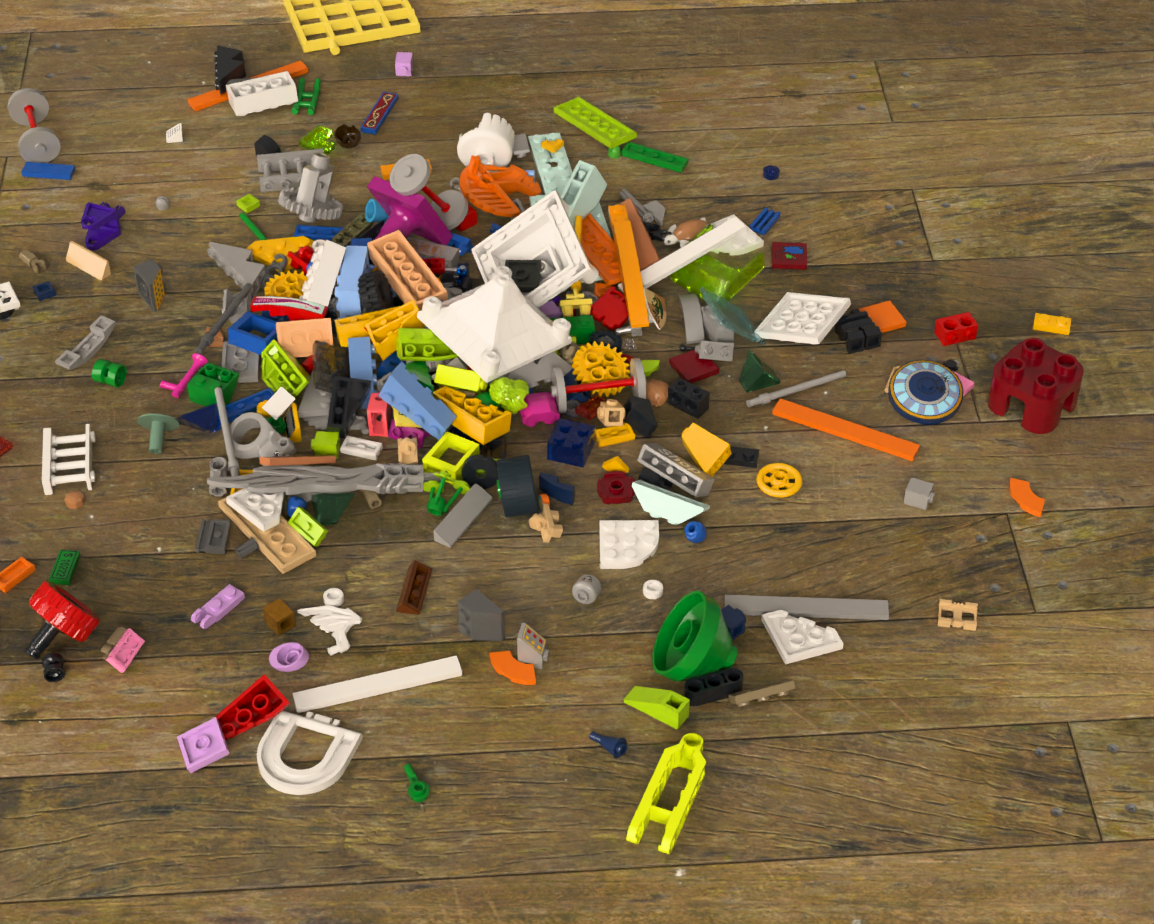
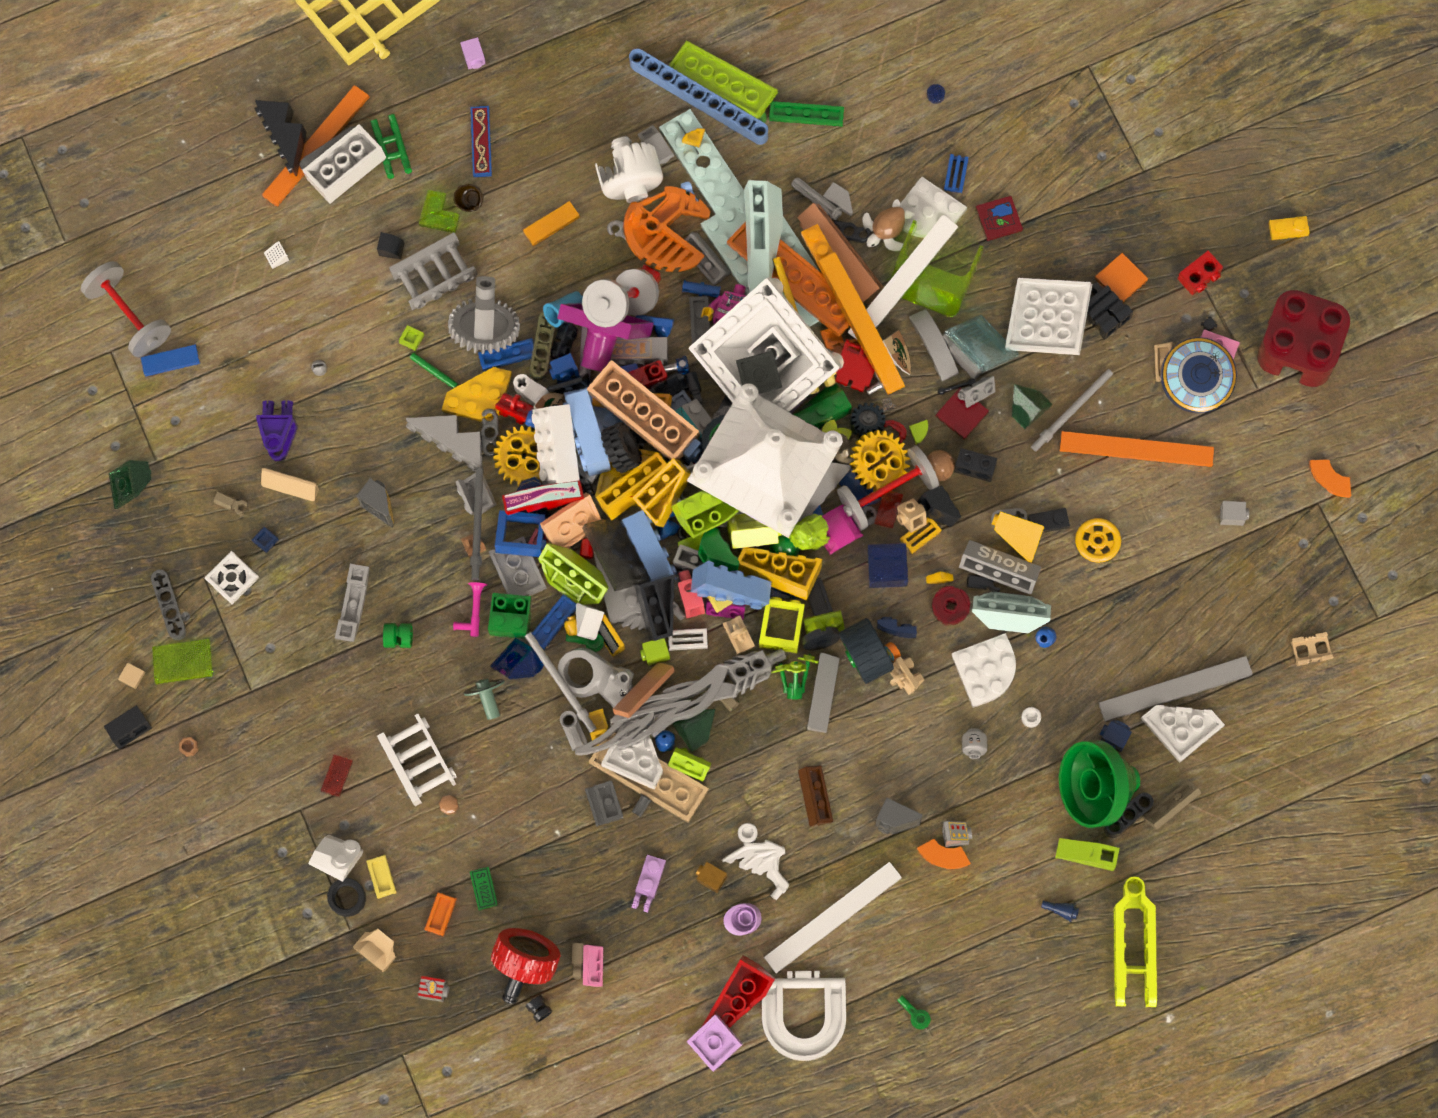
camera: 15 degrees left, 30 degrees up
(571, 127) = (693, 89): none -> medium blue beam

